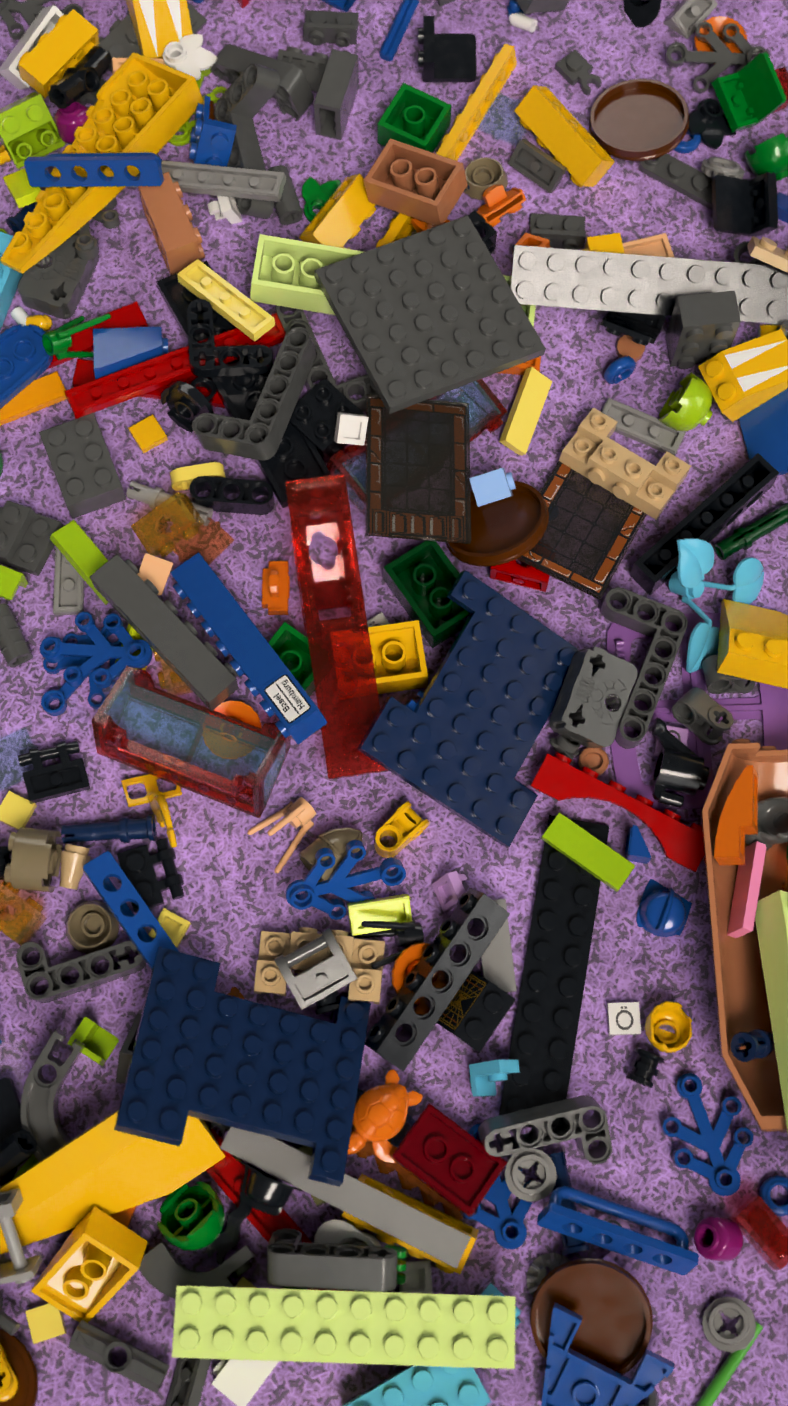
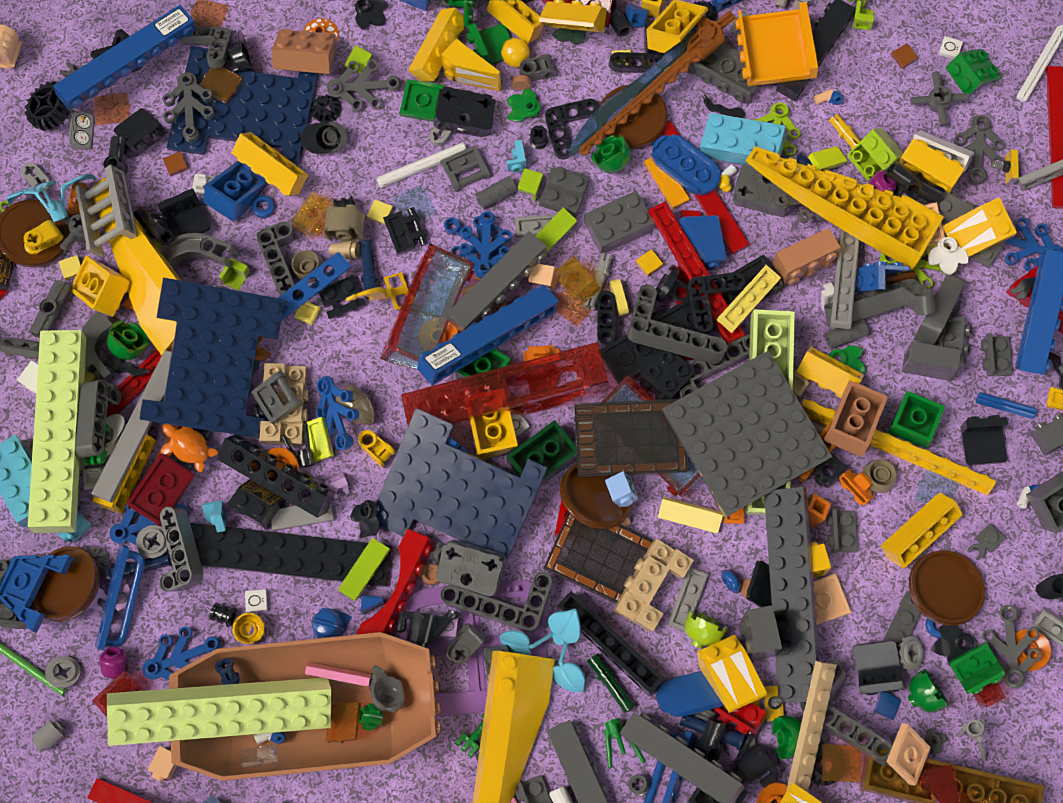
camera: 90 degrees right, 0 degrees up
(59, 340) = (706, 195): green plant -> none
(147, 163) = (829, 228): blue piece -> none
(263, 1191) = (140, 379): black piece -> none
(297, 815) = (384, 383): light nougat plant -> none
(351, 428) = (654, 389): white plate -> none
(512, 848) = (367, 517): none -> black plate
(537, 165) = (895, 513): dark grey plate -> none
(738, 819) = (381, 661): orange slope -> none

